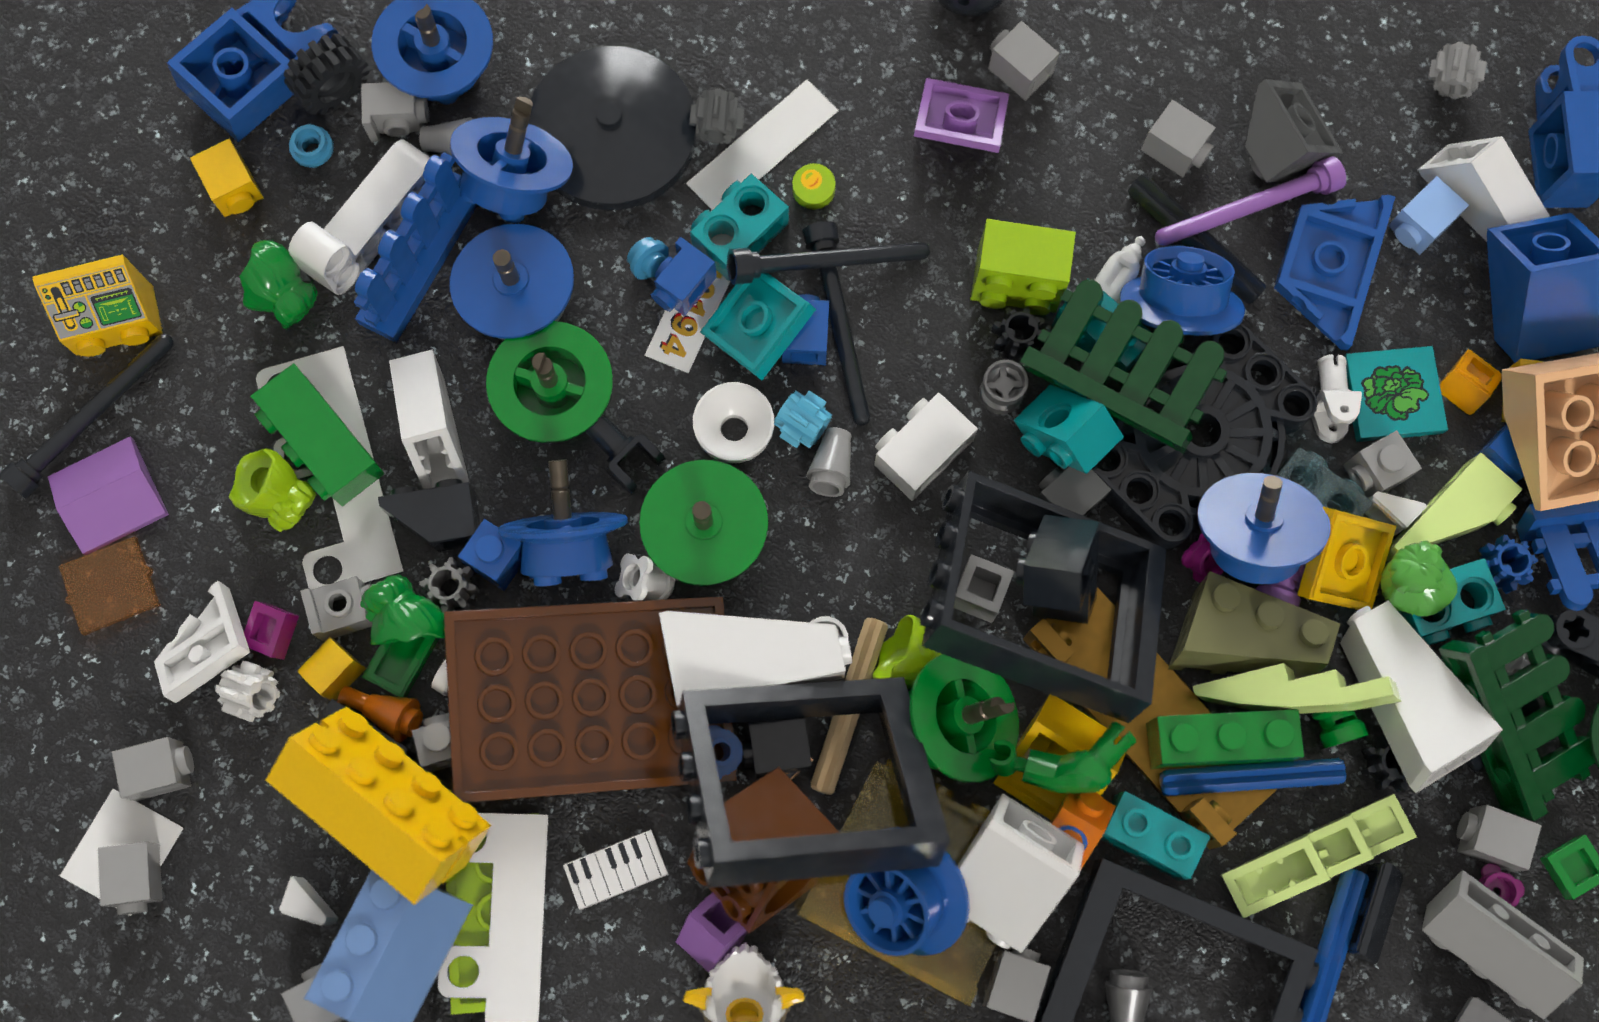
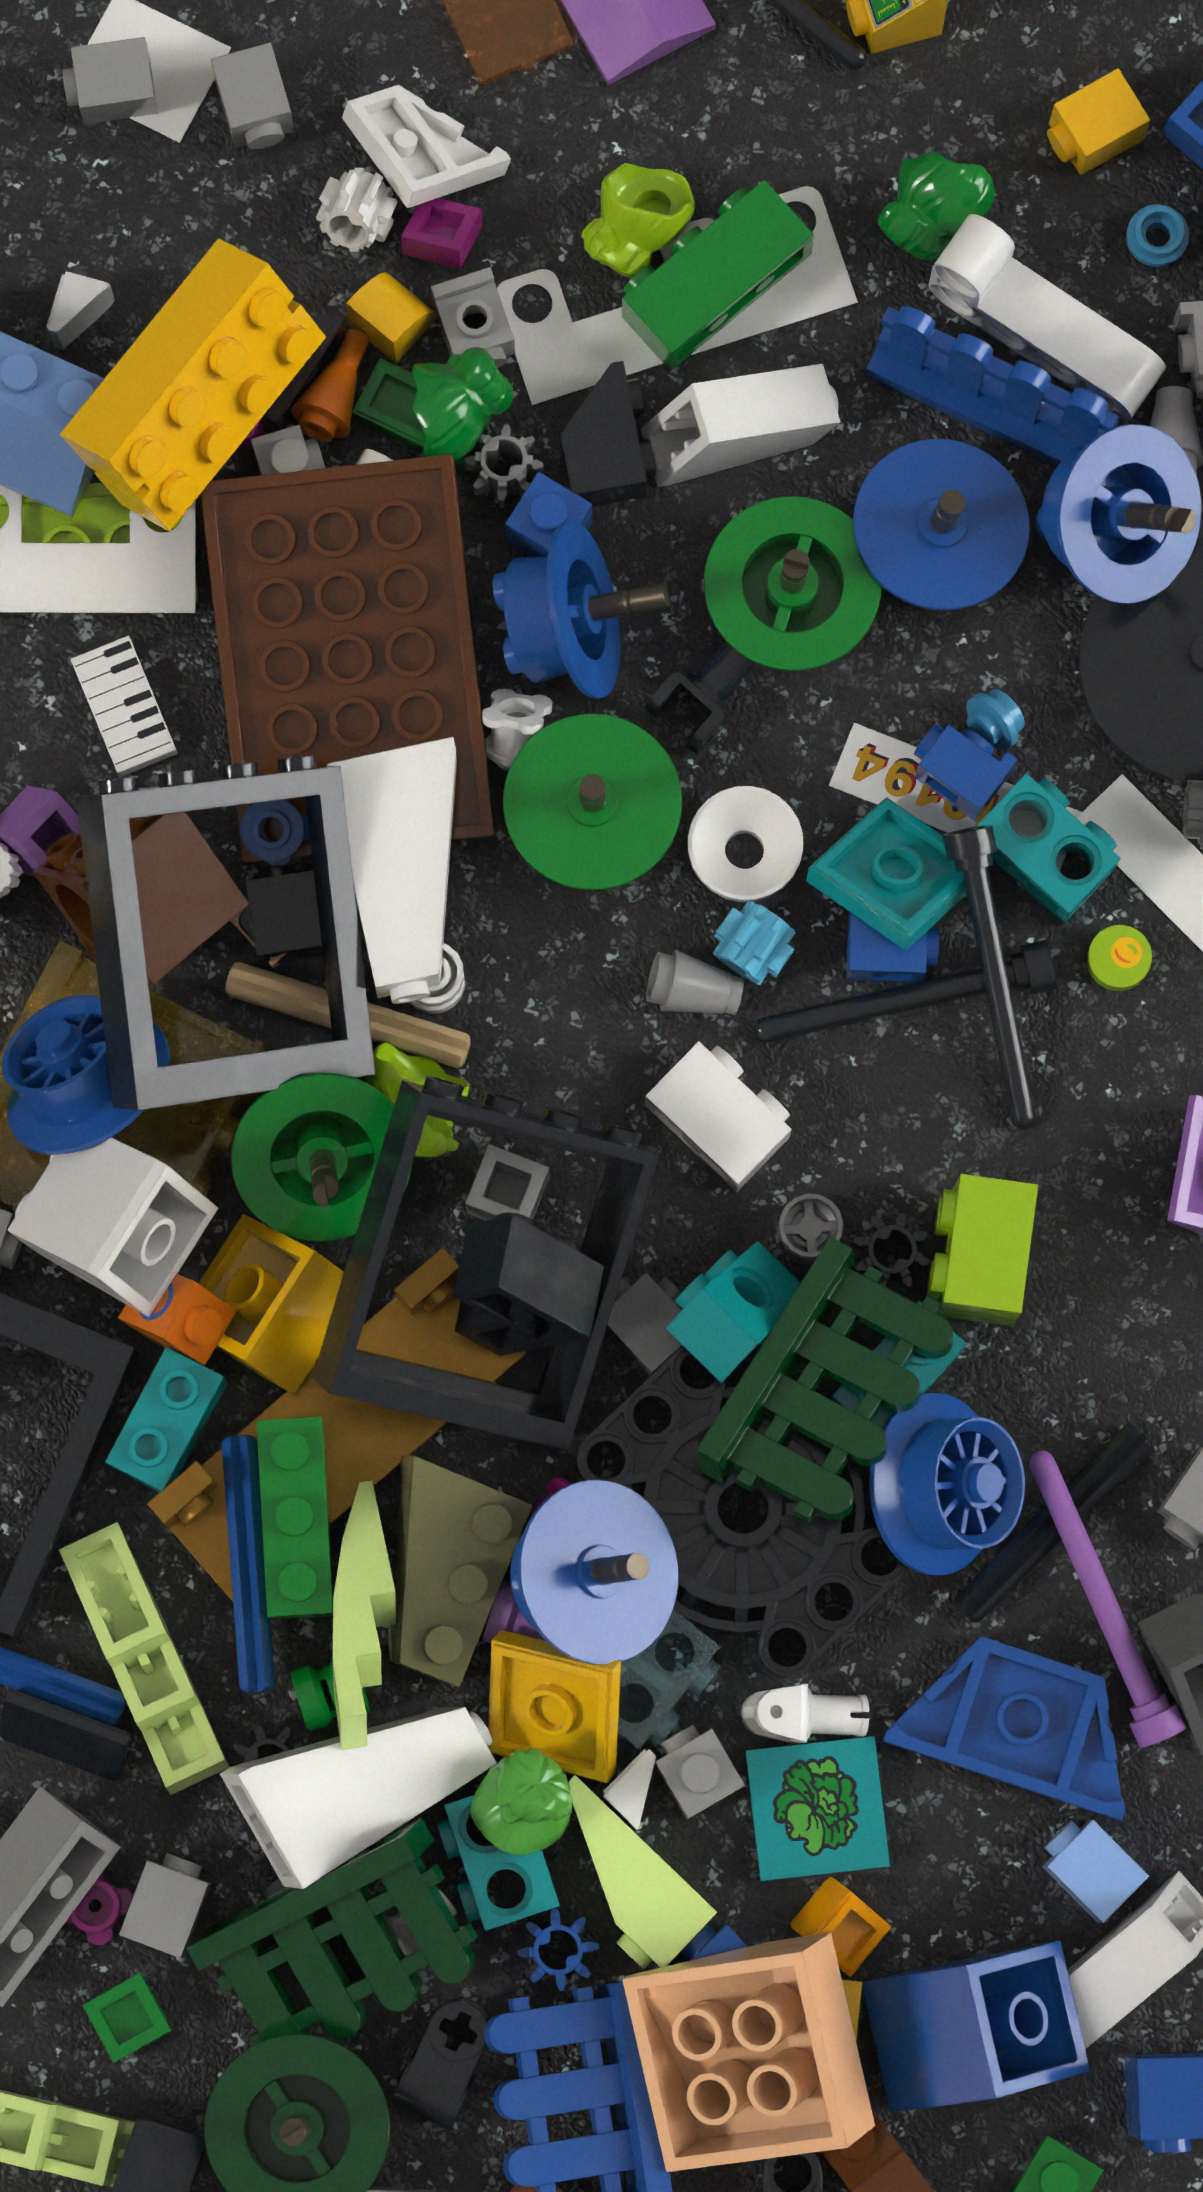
camera: 90 degrees right, 5 degrees up
(1067, 773) = (244, 1291): green arm -> none
(1121, 269) = (993, 1400): white piece -> none

